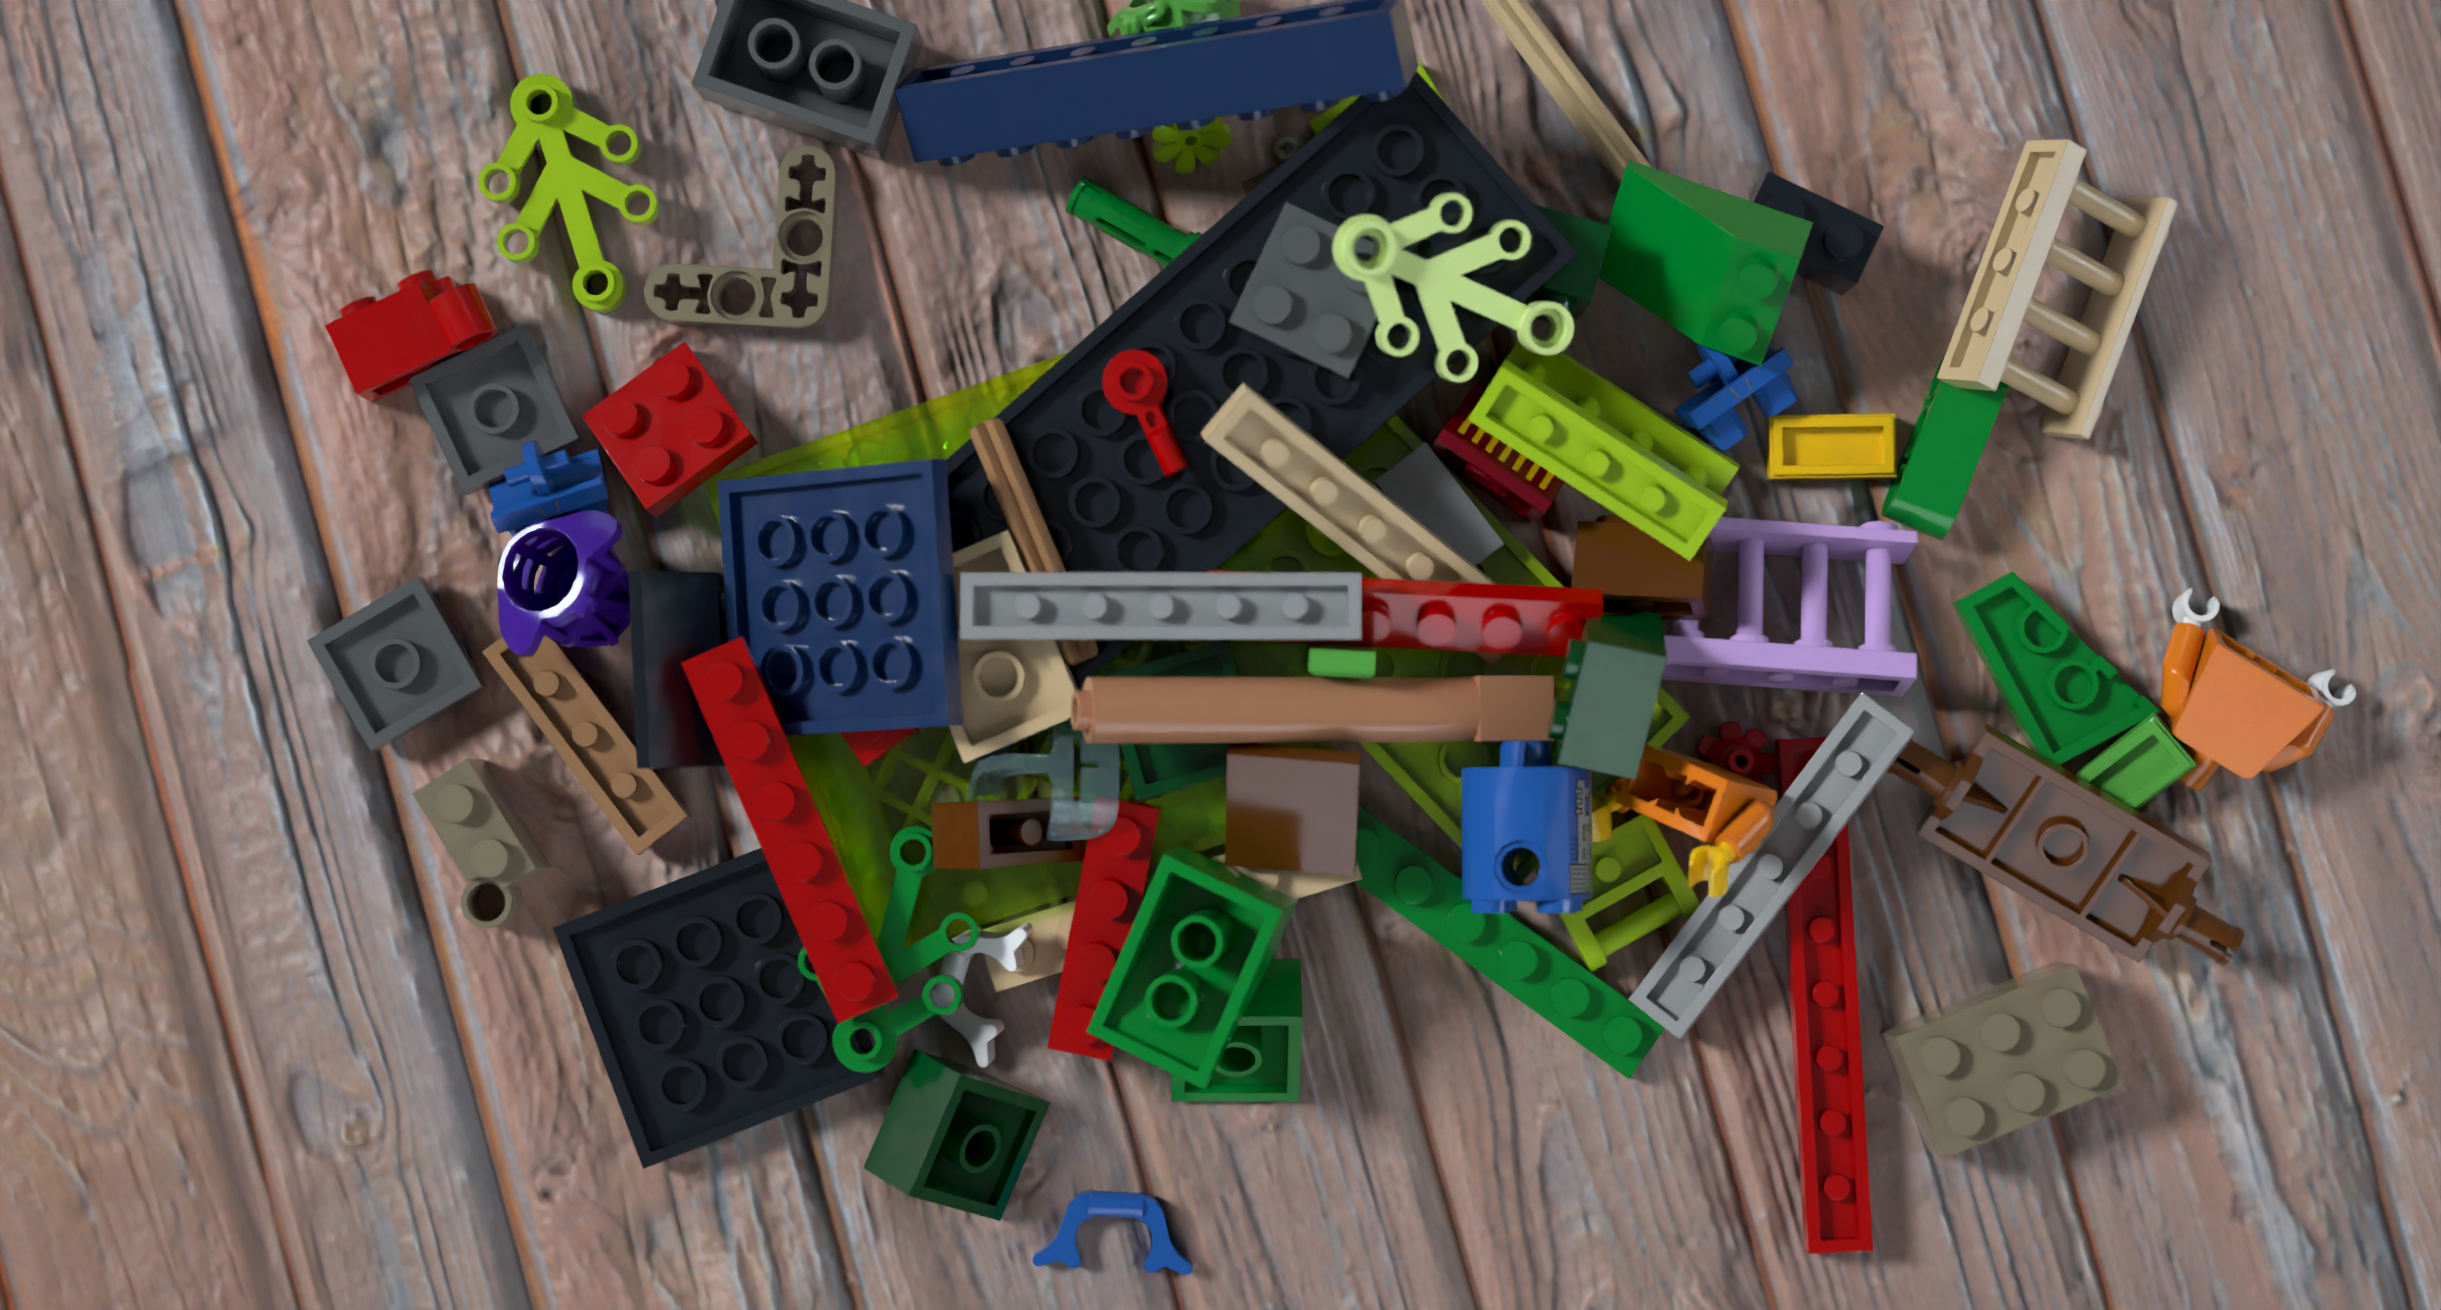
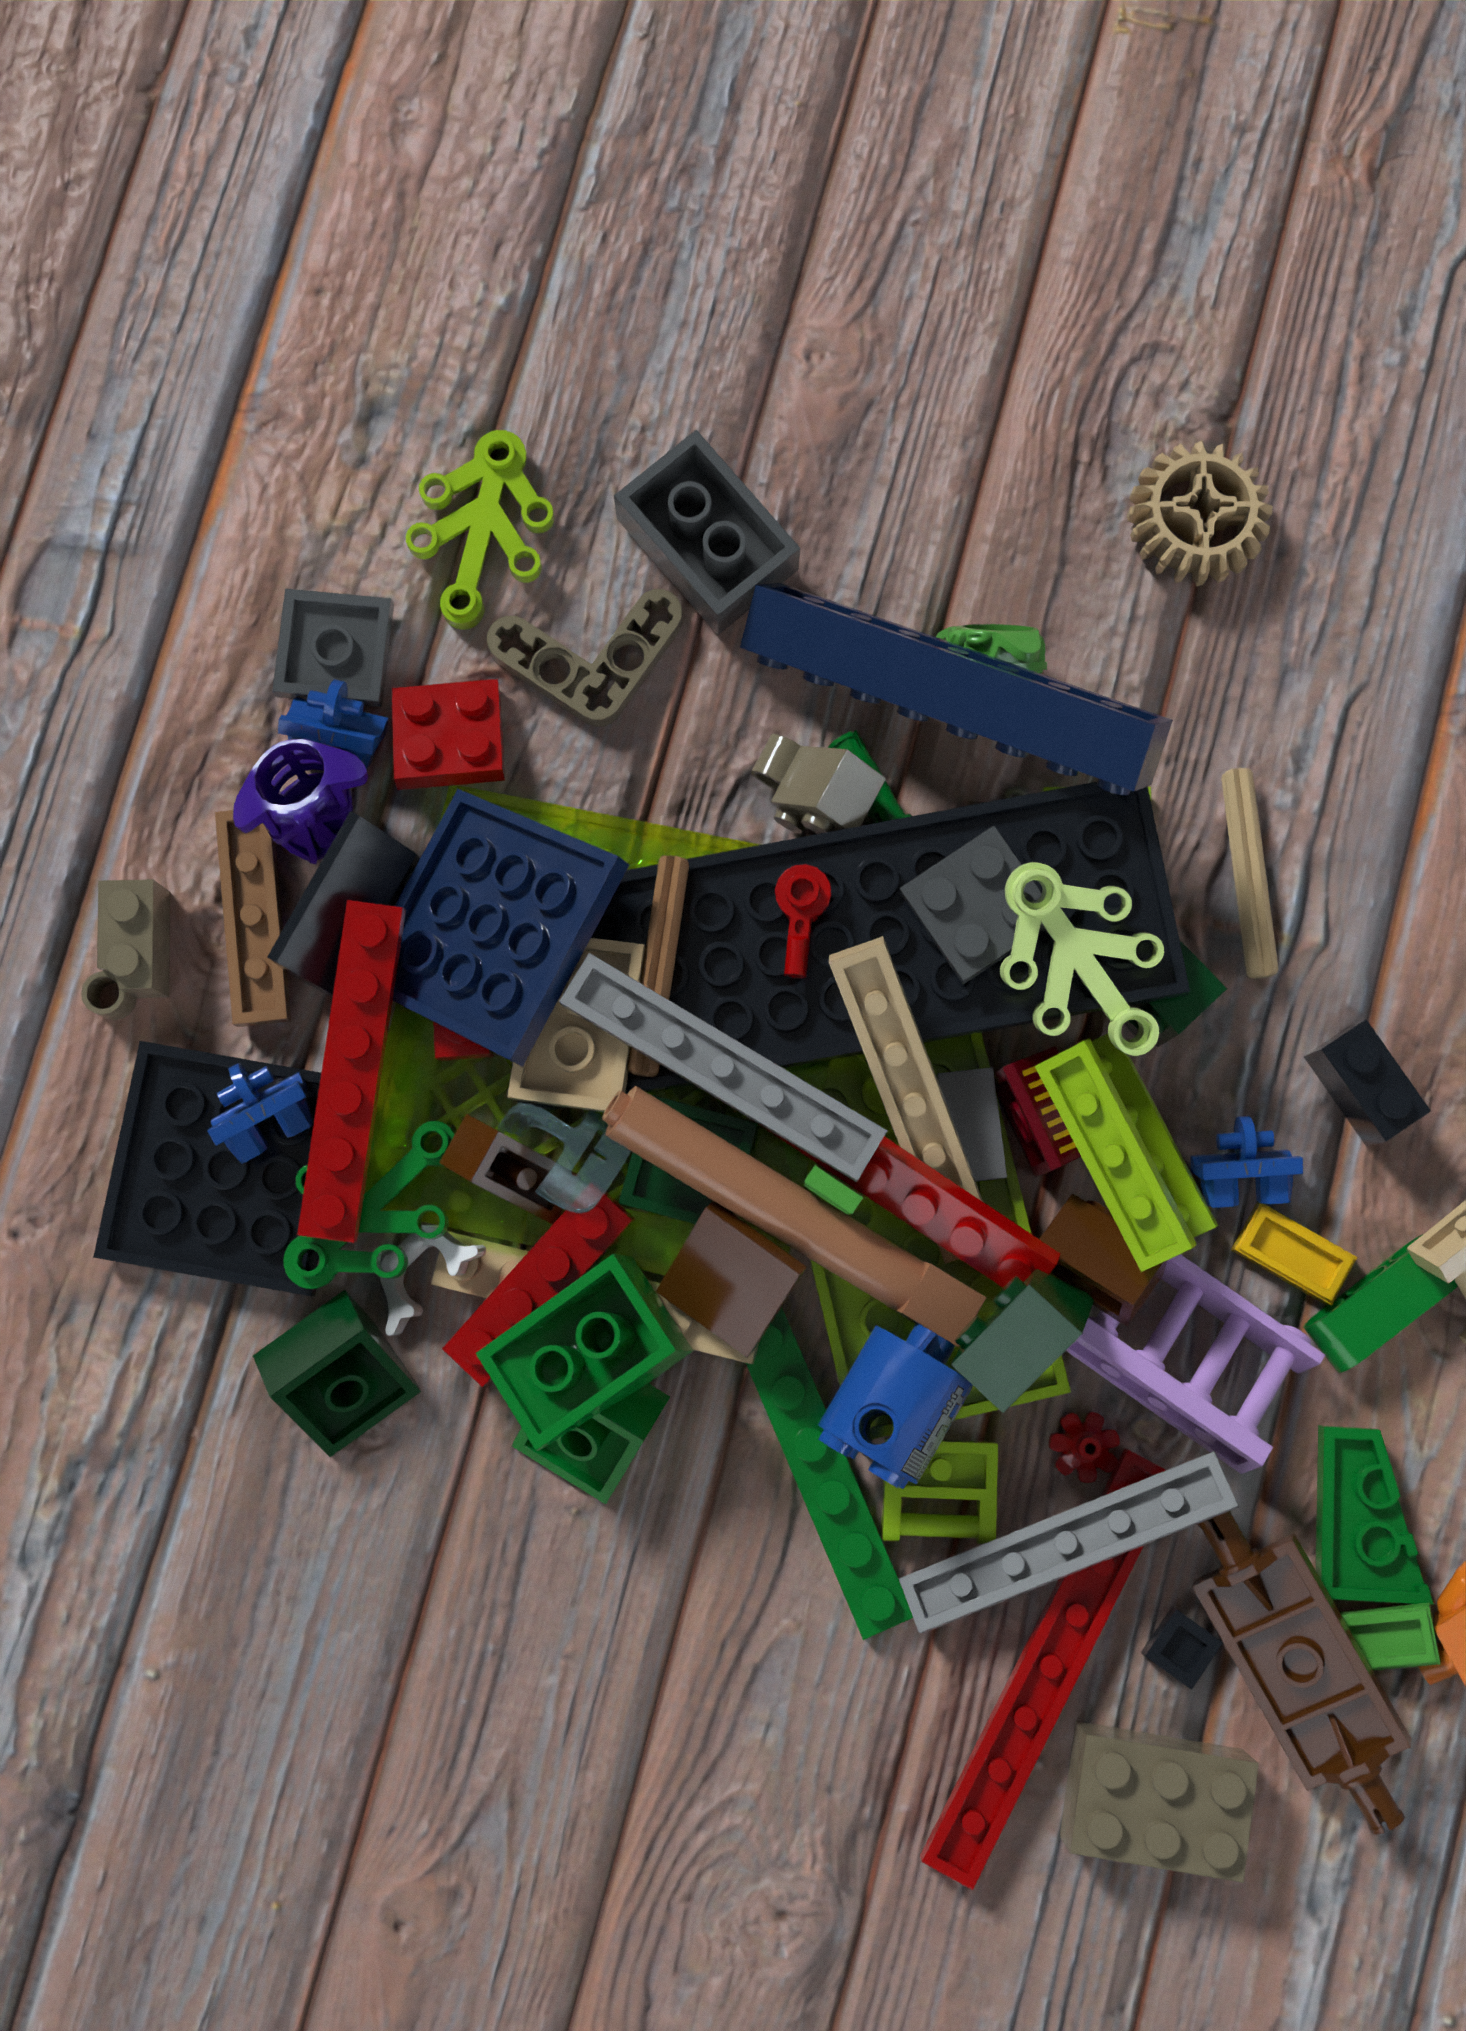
camera: 35 degrees right, 5 degrees down
(397, 663) = (150, 785): dark grey plate -> none
(408, 332) = (304, 556): red hinge -> none
(708, 949) = (239, 1124): none -> blue hips
(1080, 261) = (816, 785): none -> dark tan hinge
(1114, 1204) = (425, 1500): blue helmet -> none
(1186, 145) = (948, 750): lime plant -> none
(1697, 801) = (1040, 1460): orange torso -> none
(1703, 259) = (1279, 1055): green slope -> none
(1941, 899) = (1181, 1647): none -> black tile

